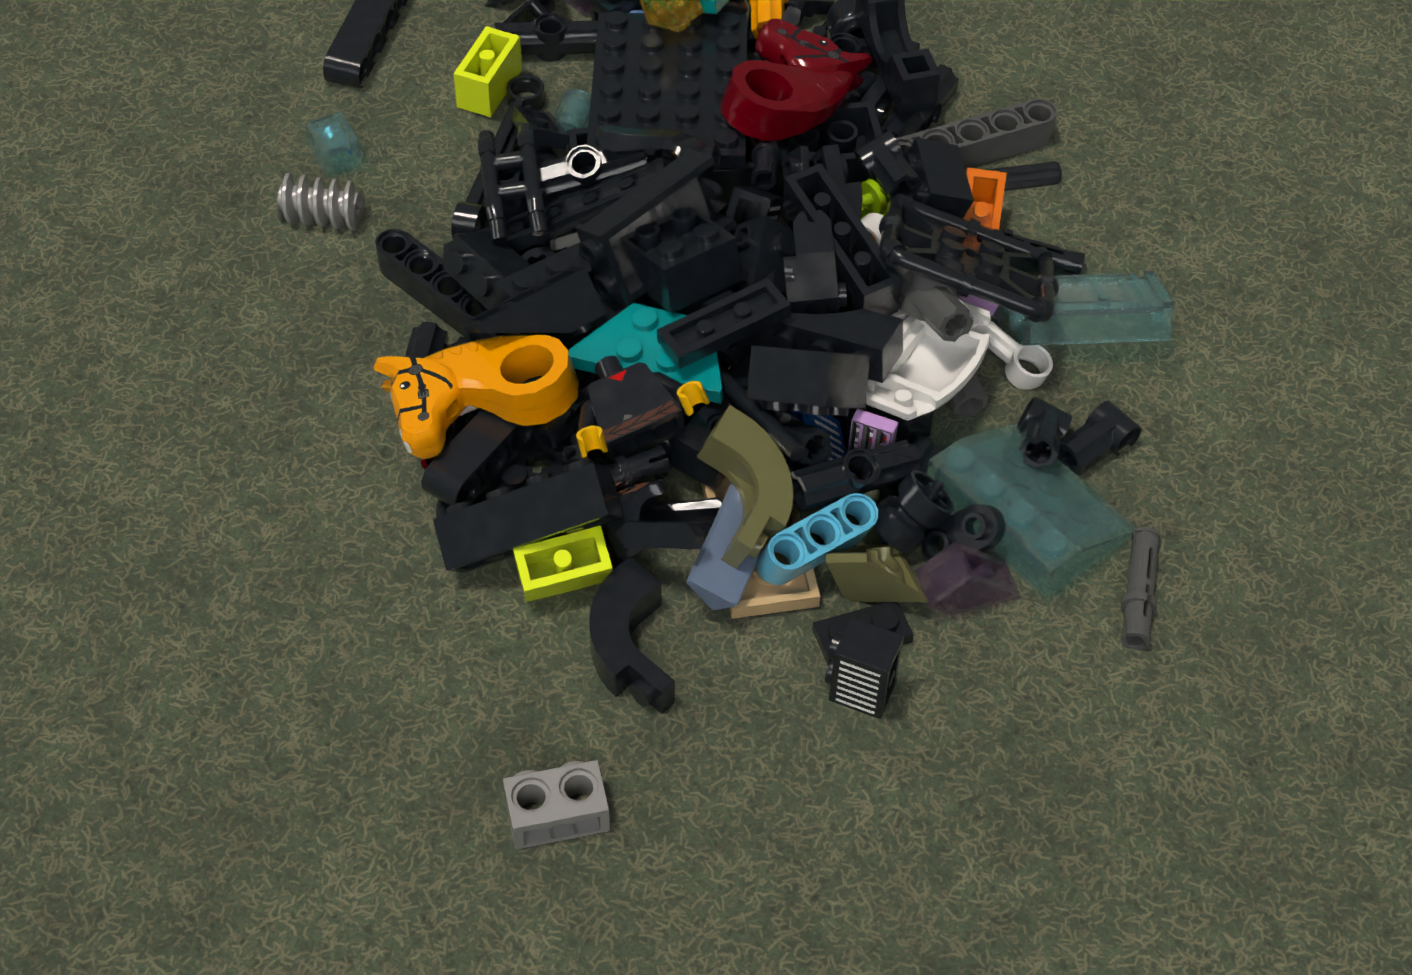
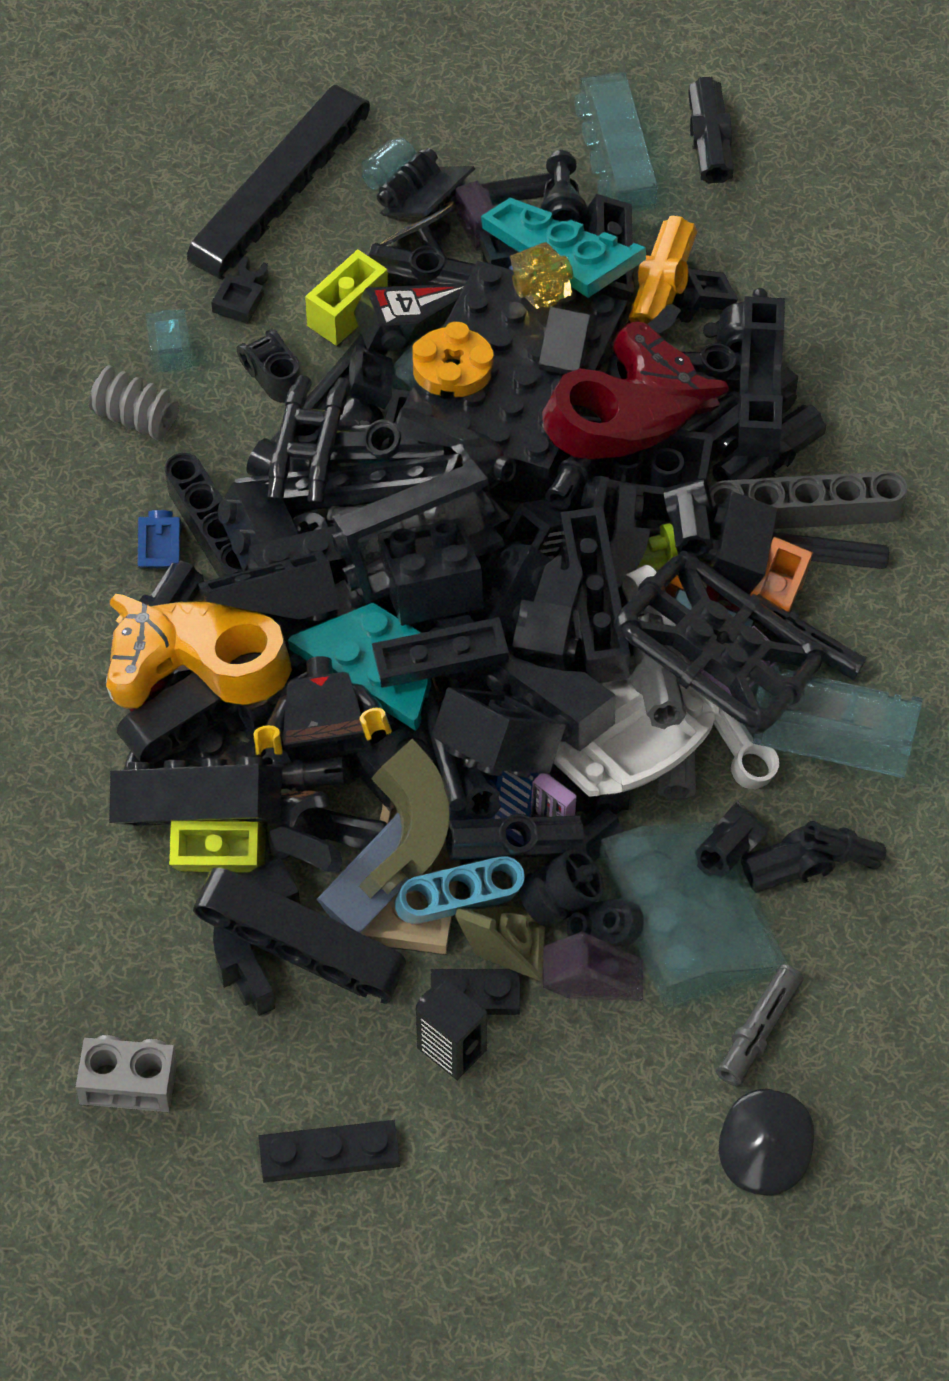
camera: 20 degrees right, 5 degrees up
(386, 93) = (241, 295): none -> black plate
(391, 312) = (159, 539): none -> blue bracket
(440, 144) = (270, 364): none -> black piece
(548, 70) = (400, 314): none -> black slope
(619, 87) = (457, 343): none -> light orange plate
(679, 621) = (299, 935): none -> black beam
(714, 47) = (566, 340): none -> black slope
(786, 821) = (329, 1151): none -> black plate
(1144, 409) = (843, 845): none -> black pin
(1200, 689) = (766, 1142): none -> black piece

